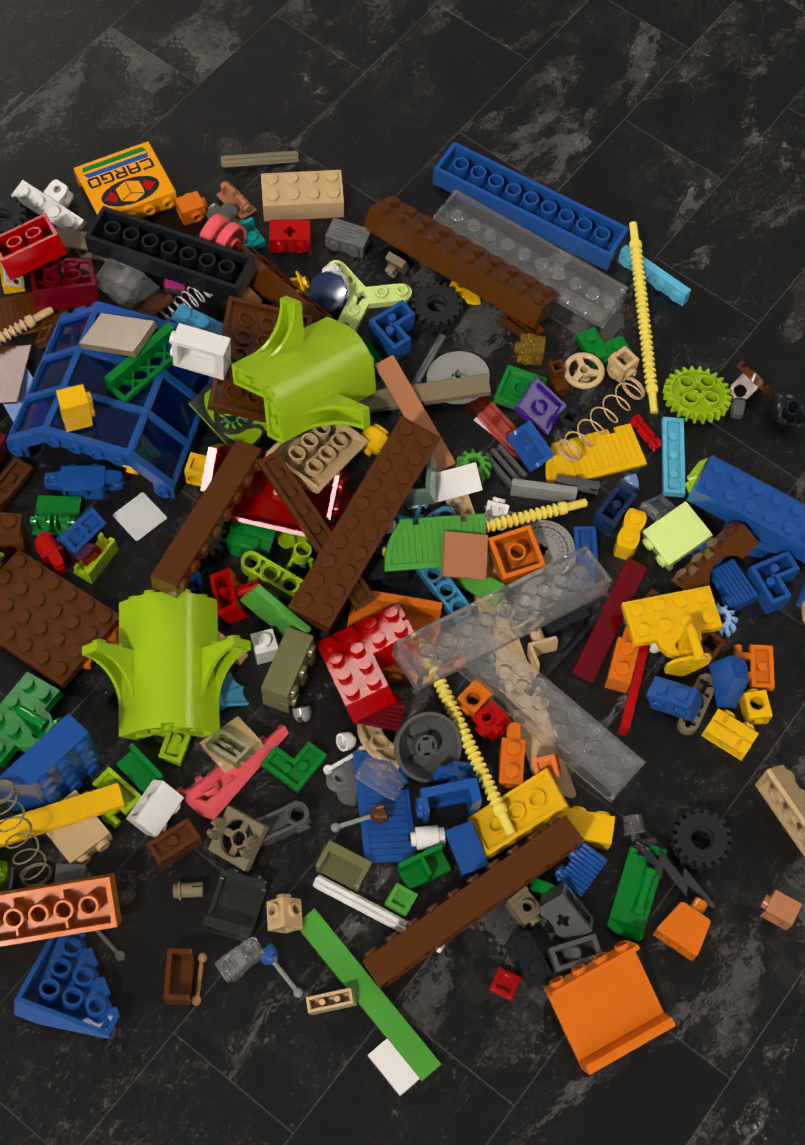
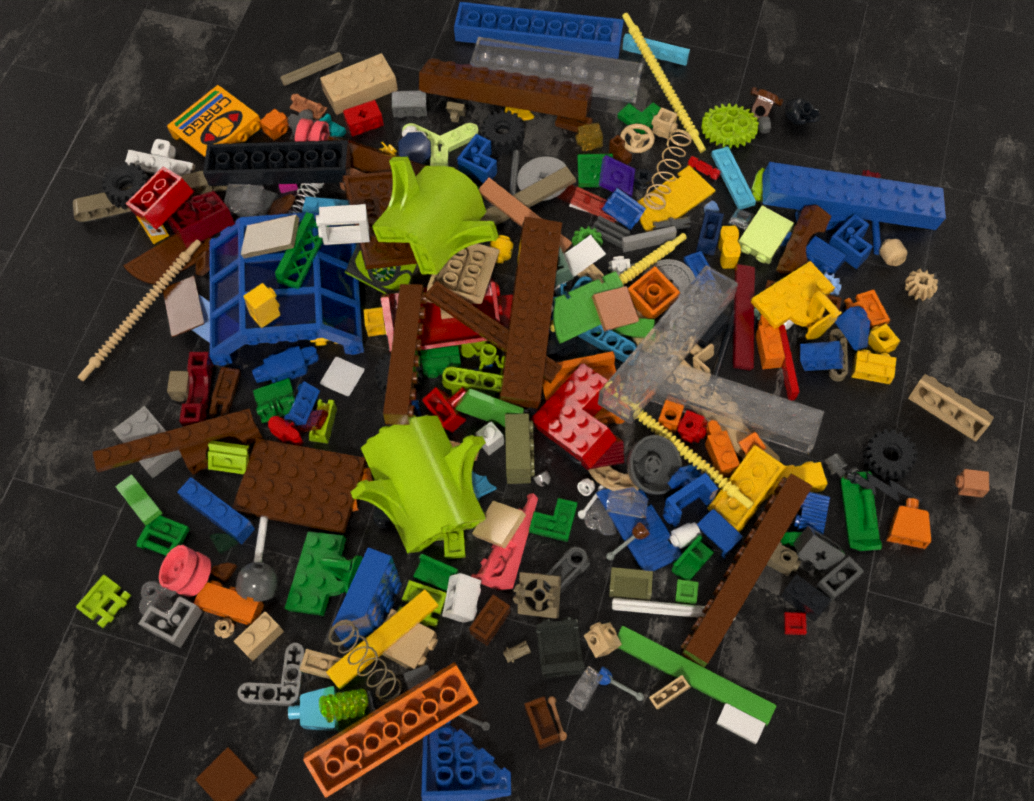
camera: 15 degrees left, 0 degrees up
(240, 756) = (500, 530): olive tile -> none
(607, 1007) = (883, 609): orange panel -> none

